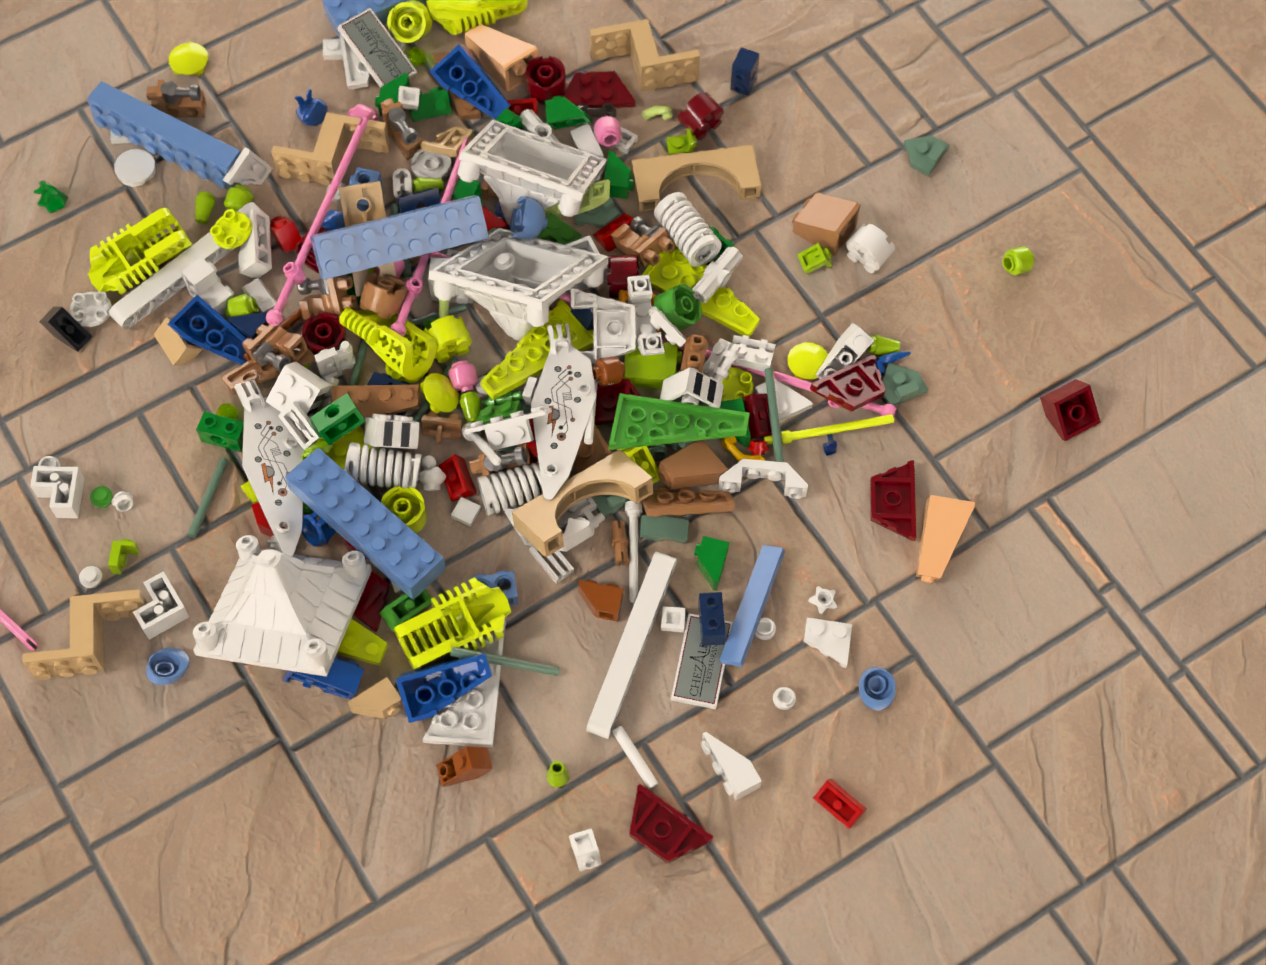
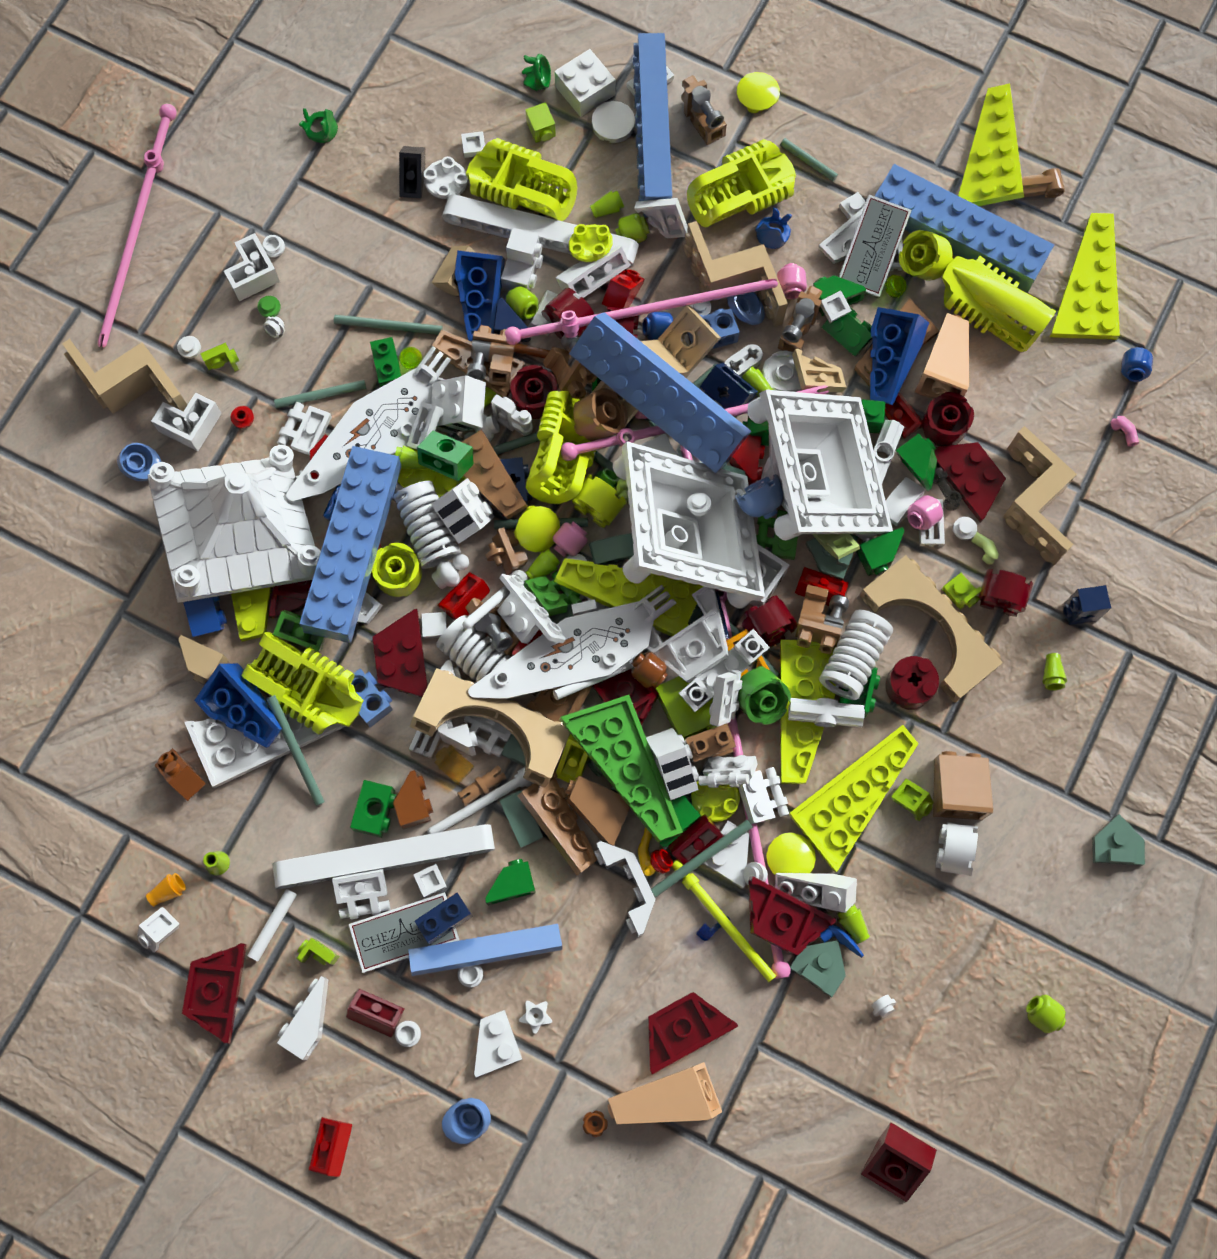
camera: 60 degrees right, 10 degrees up
(76, 273) = (472, 143): none -> white plate
(88, 167) = (585, 82): none -> white brick
(97, 215) = (540, 122): none -> lime brick
(182, 419) = (387, 324): none -> sand green axle
(189, 570) = (246, 421): none -> red plate
(236, 519) = (311, 429): none -> white plate
(262, 99) = (746, 180): none -> neon yellow connector
(271, 57) = (808, 159): none -> sand green bar
(273, 278) = (566, 302): none -> dark red brick
(363, 159) = (747, 308): none -> medium blue hat
(476, 549) = (401, 656): none -> dark red wing
(492, 350) = (612, 549): none -> sand green slope
(556, 825) = (167, 889): none -> light orange cone
(589, 555) = (453, 764): none -> clear yellow bracket
(595, 642) = (371, 794): none -> green brick
(634, 117) = (965, 528): none -> white plate
(647, 670) = (359, 887): none -> white plate
(680, 728) = (322, 953): none -> lime bracket
(729, 210) = (919, 671): none -> dark red brick
(753, 716) = (374, 1012): none -> dark red slope
(779, 122) = (1054, 674): none -> lime cone
(790, 301) = (845, 805): none -> neon yellow wing
(804, 388) = (755, 869): none -> white plate
(930, 593) = (588, 1127): none -> dark orange plate
(954, 359) = (883, 1006): none -> white plate

